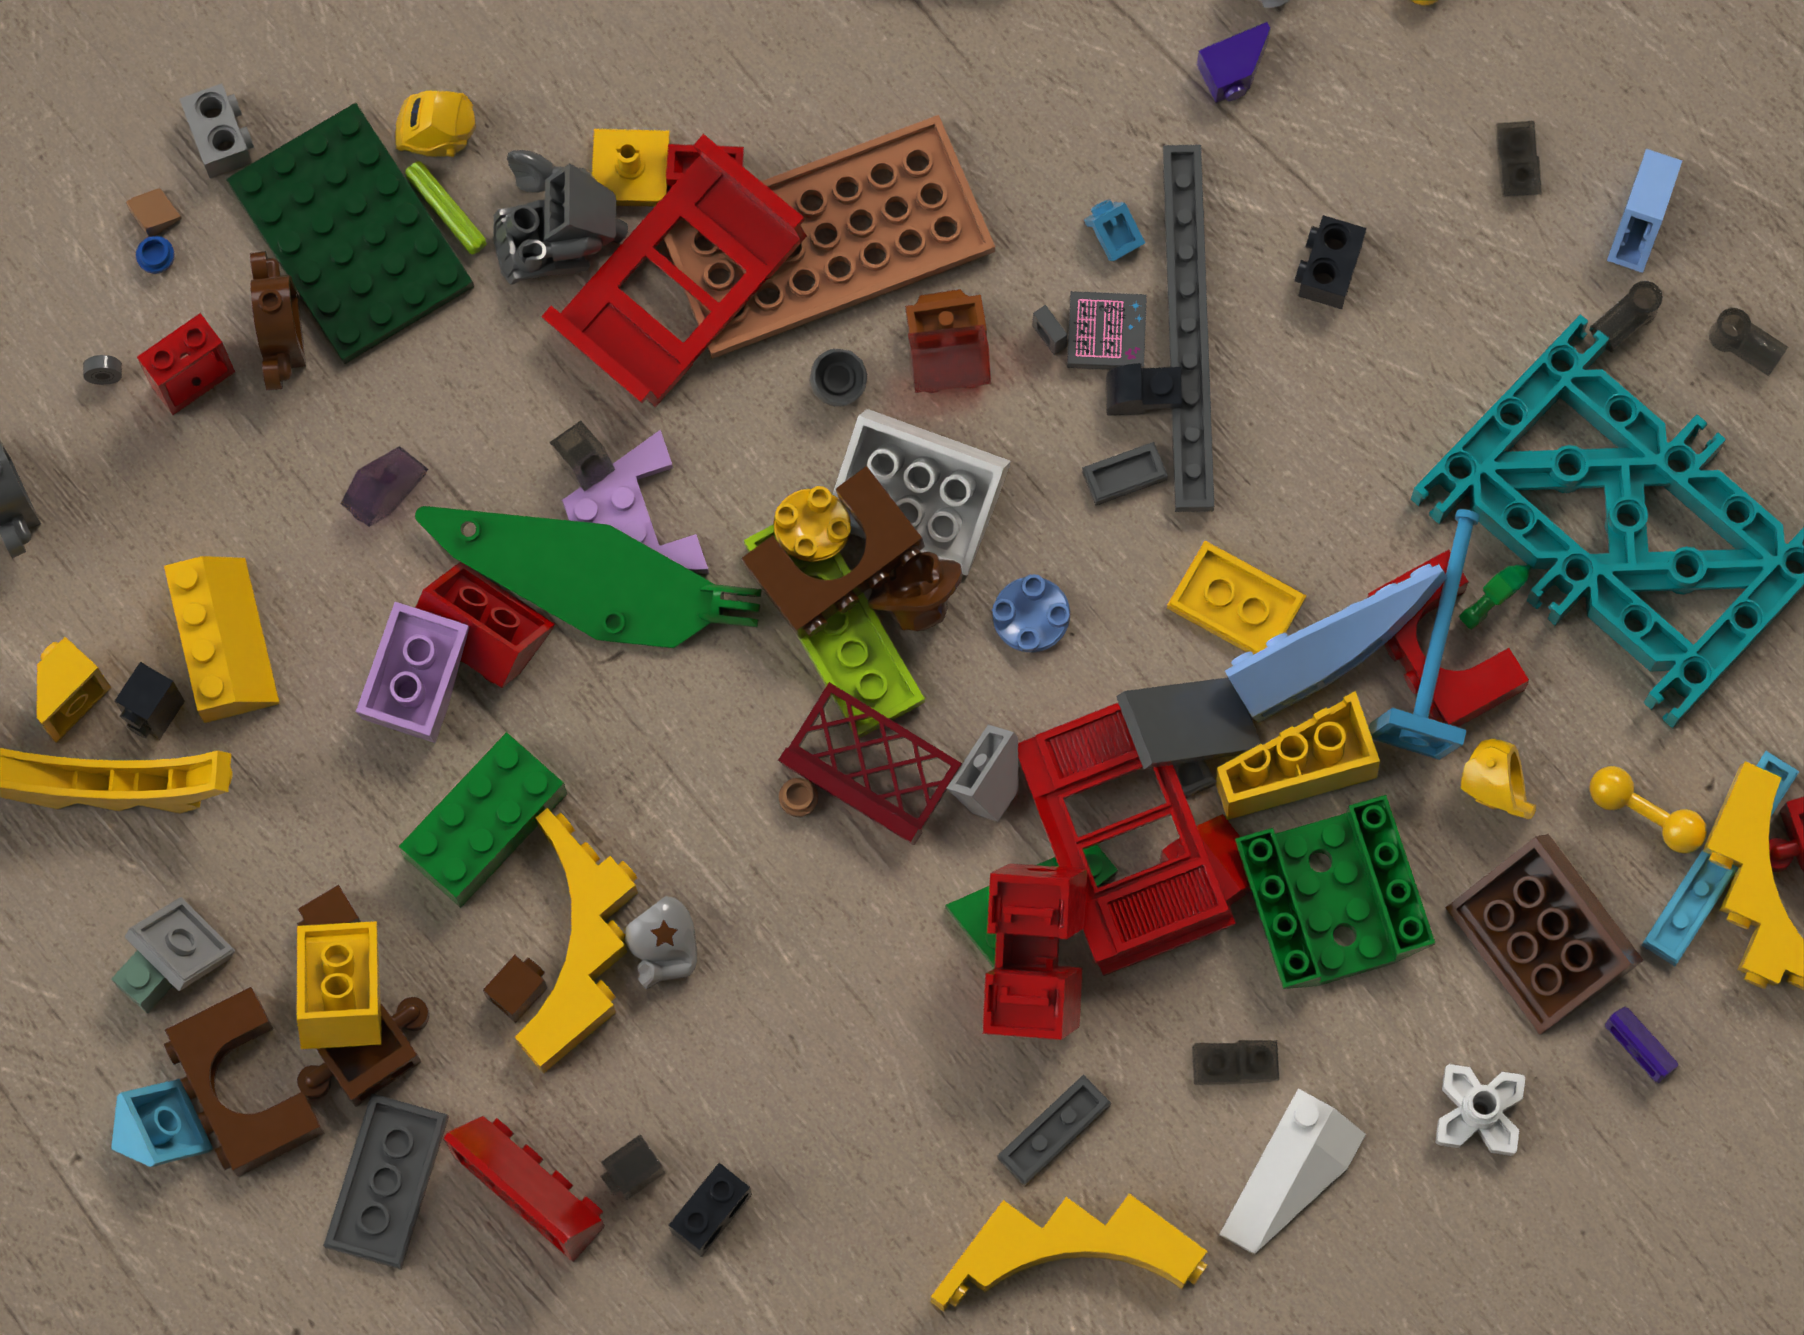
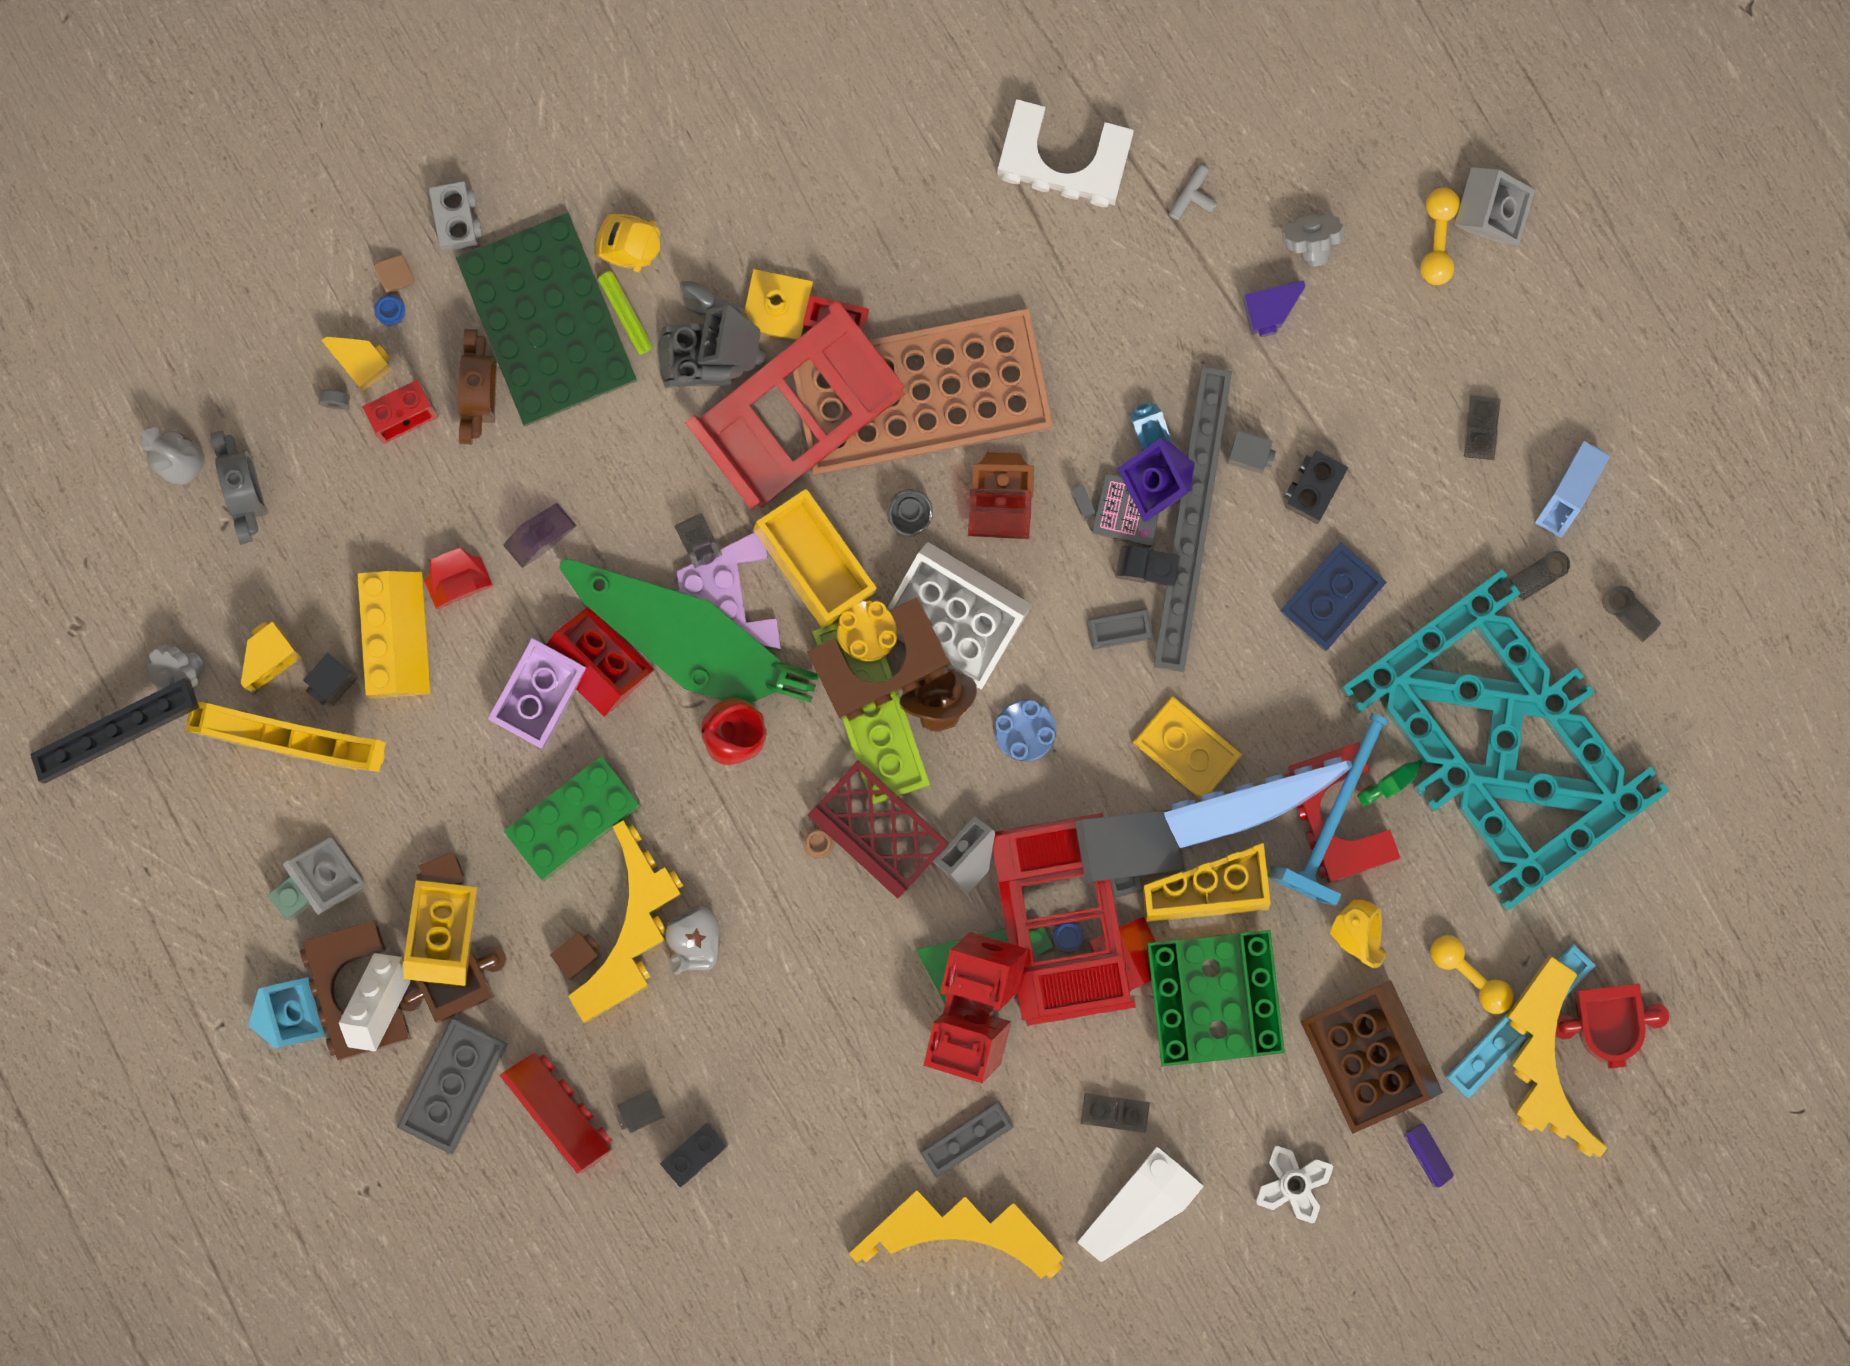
camera: 10 degrees right, 10 degrees up
(125, 316) = (359, 359): none -> yellow slope
(268, 1086) = (374, 1002): none -> white brick
(288, 555) = (456, 577): none -> red slope
(667, 675) = (733, 731): none -> red piece
(730, 449) = (814, 558): none -> yellow piece
(1133, 854) = (1068, 936): none -> blue plate
(1134, 279) = (1157, 477): none -> dark purple slope
(1244, 235) = (1251, 452): none -> dark grey brick
(1379, 387) = (1333, 596): none -> dark blue plate

